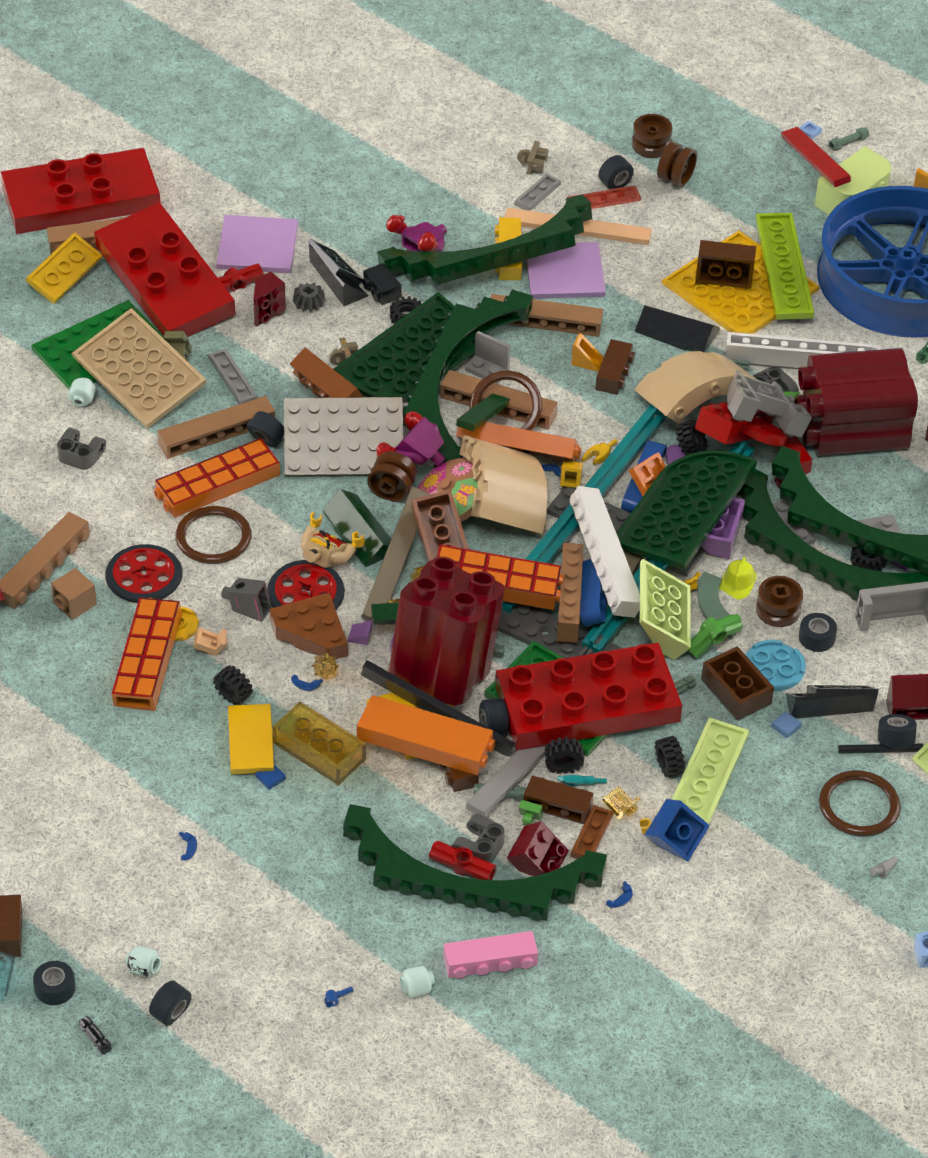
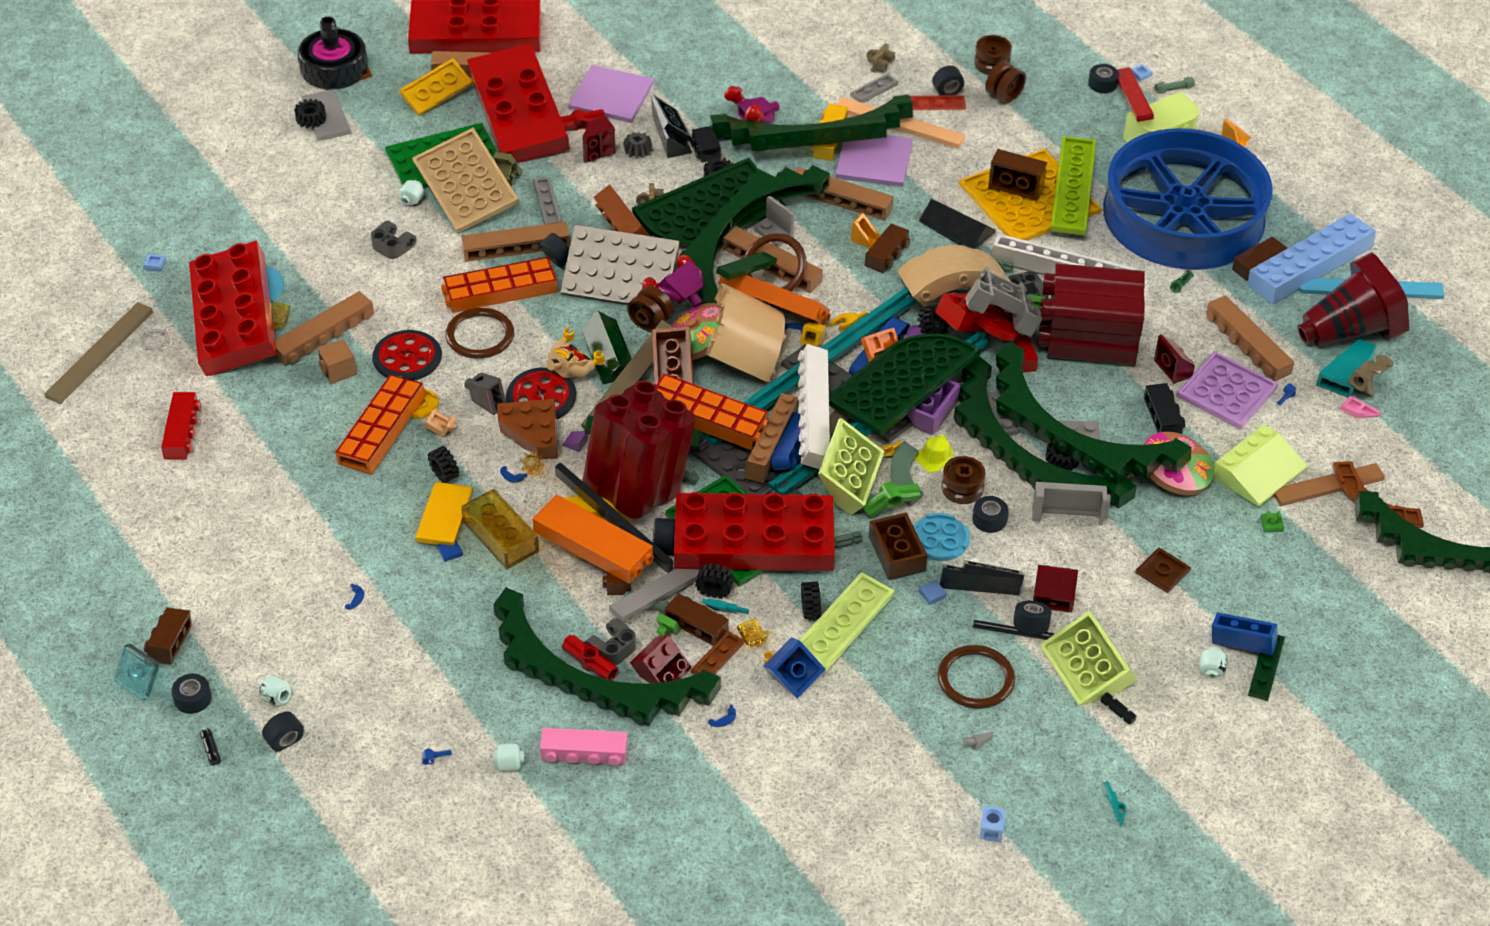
camera: 15 degrees right, 0 degrees up
(774, 143) = (1103, 78): none -> black wheel

